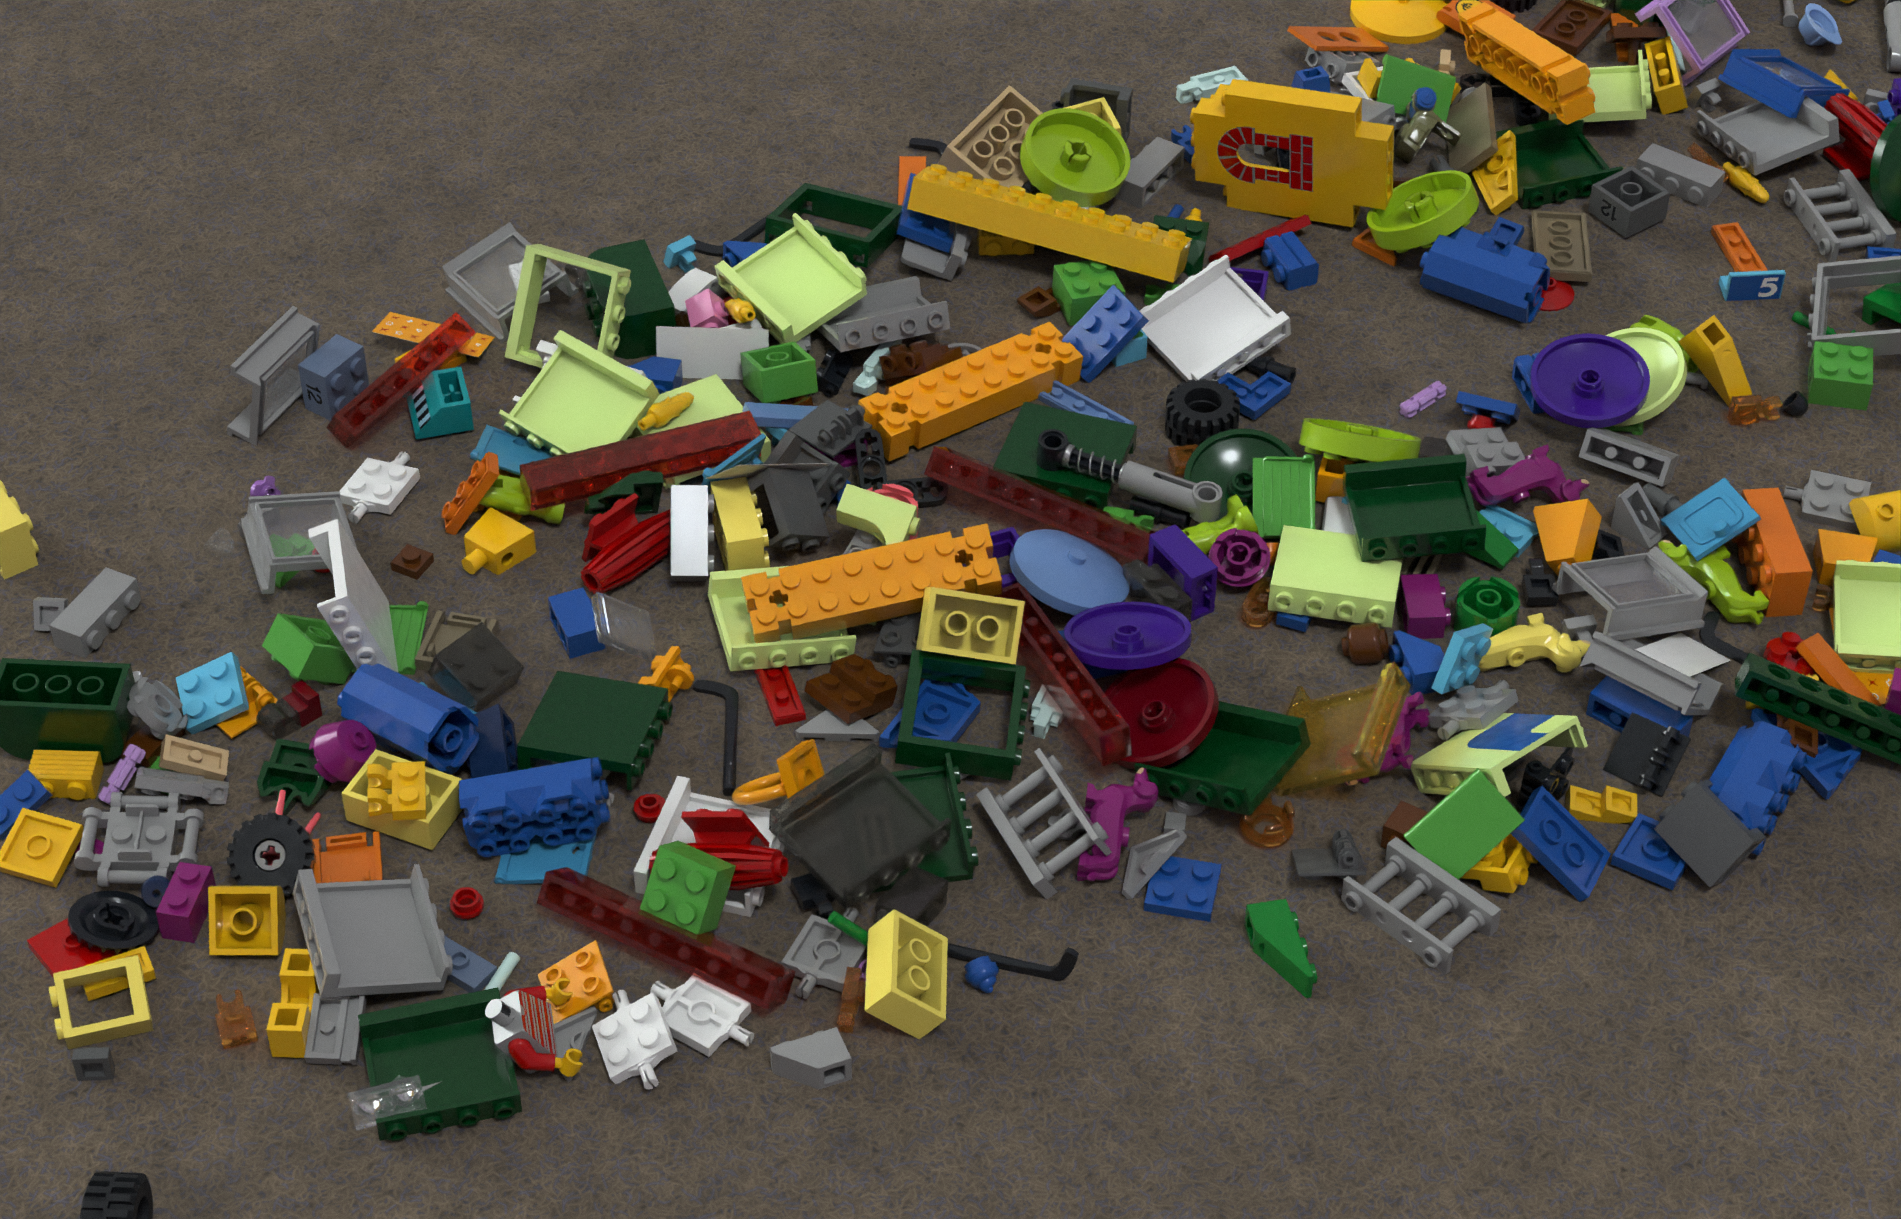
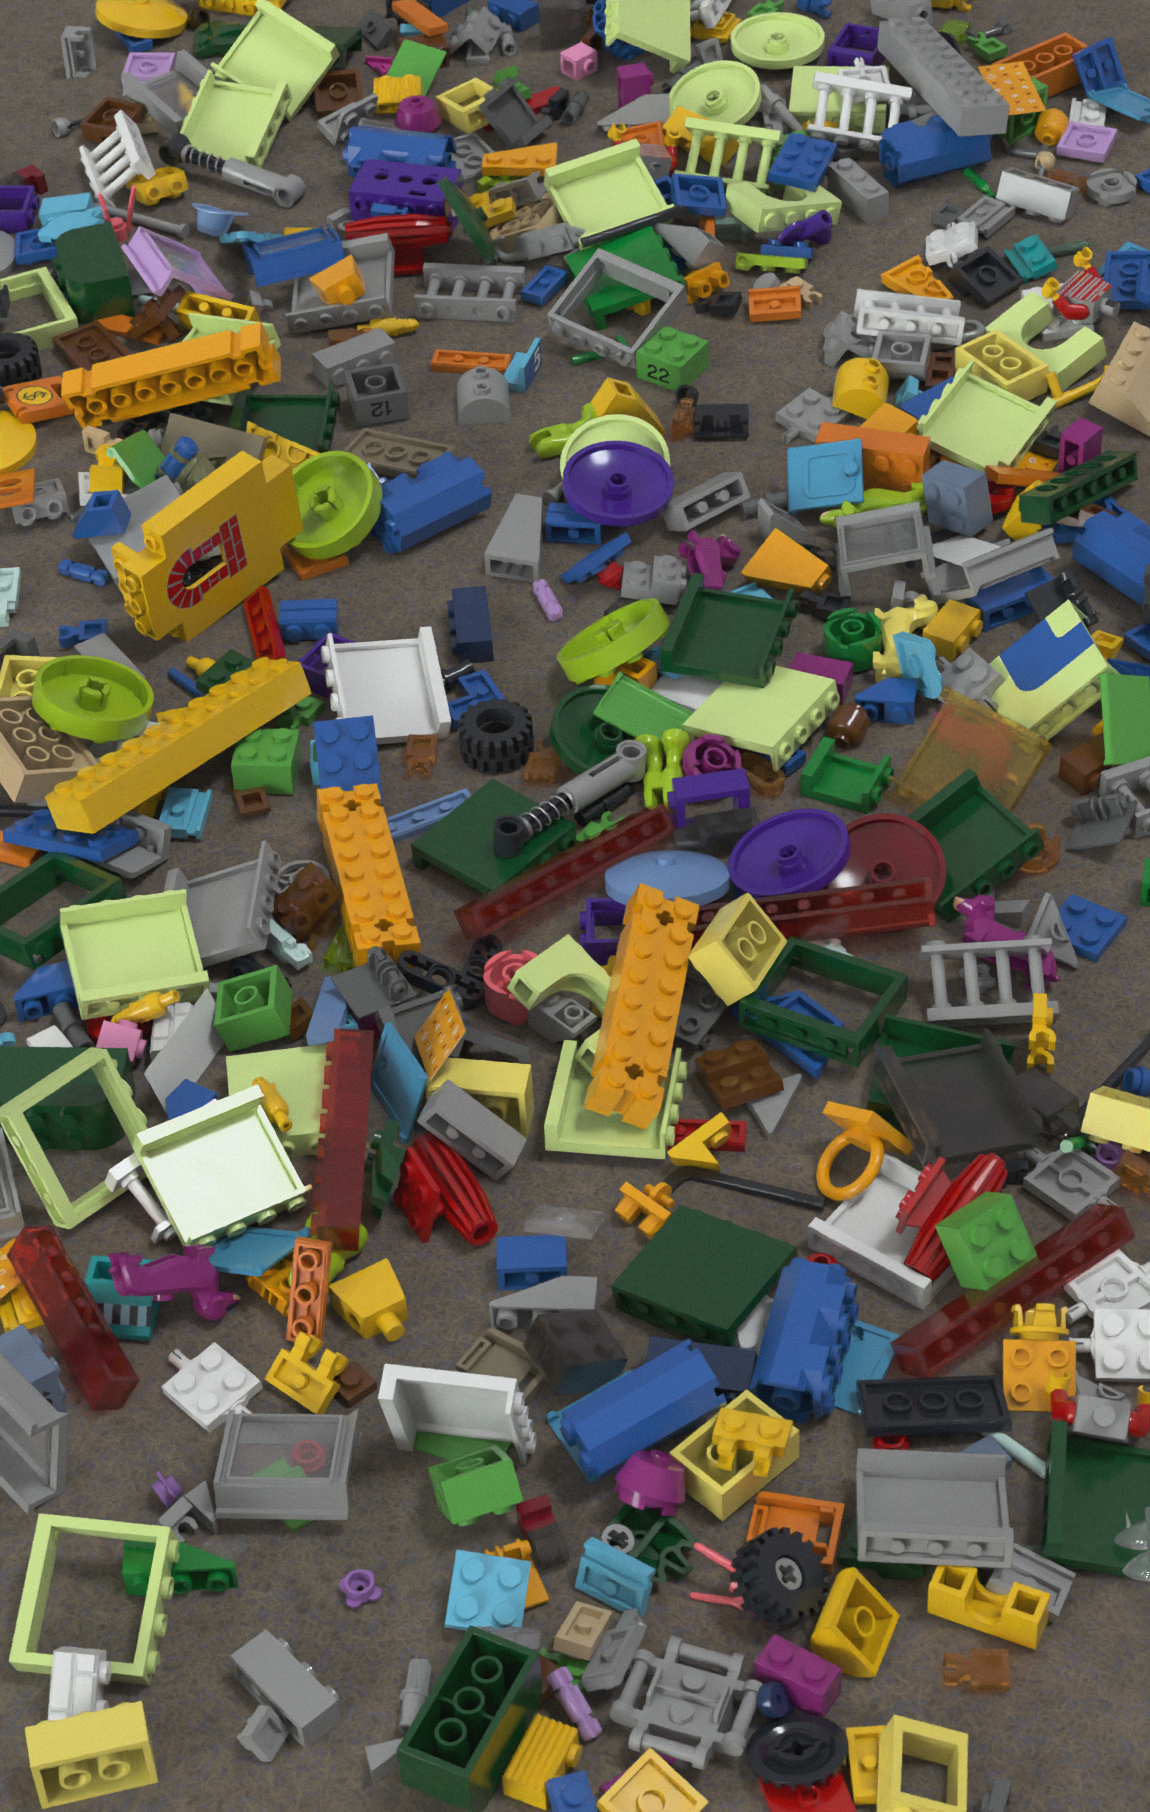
camera: 65 degrees left, 0 degrees up
(52, 497) = (78, 1681): none -> white brick
(121, 453) = (38, 1579): none -> yellowish green window
(192, 515) = (192, 1572): none -> green slope
(207, 626) = (355, 1580): none -> medium lavender plate
(233, 502) = (175, 1517): none -> light grey tile
(255, 758) = (614, 1577): none -> medium azure plate
(282, 741) = (618, 1532): none -> light grey bush
(401, 527) = (303, 1382): none -> yellow plate
(450, 411) = (173, 1275): none -> magenta animal
(510, 918) = (933, 1406): none -> black tile
(534, 647) = (553, 1296): none -> light grey slope
(622, 970) = (1039, 1322): none -> yellow piece
(748, 686) = (694, 1149): none -> yellow slope
(992, 875) = (1040, 1036): none -> yellow plate
(1003, 269) = (186, 811): none -> medium azure plate
(1158, 379) = (421, 752): none -> clear orange plate
(1292, 658) = (844, 779): none -> green panel
(1349, 359) = (470, 624): none -> dark blue brick
(1486, 354) = (517, 543): none -> light grey slope
(1558, 682) = (953, 629): none -> yellow brick
(1685, 273) = (483, 397): none -> light grey brick
(1748, 622) = (957, 498): none -> sand blue brick
(1749, 119) = (339, 282): none -> light orange torso
(1776, 438) = (721, 421): none -> black hinge
(1799, 53) = (245, 237): none -> medium azure tile

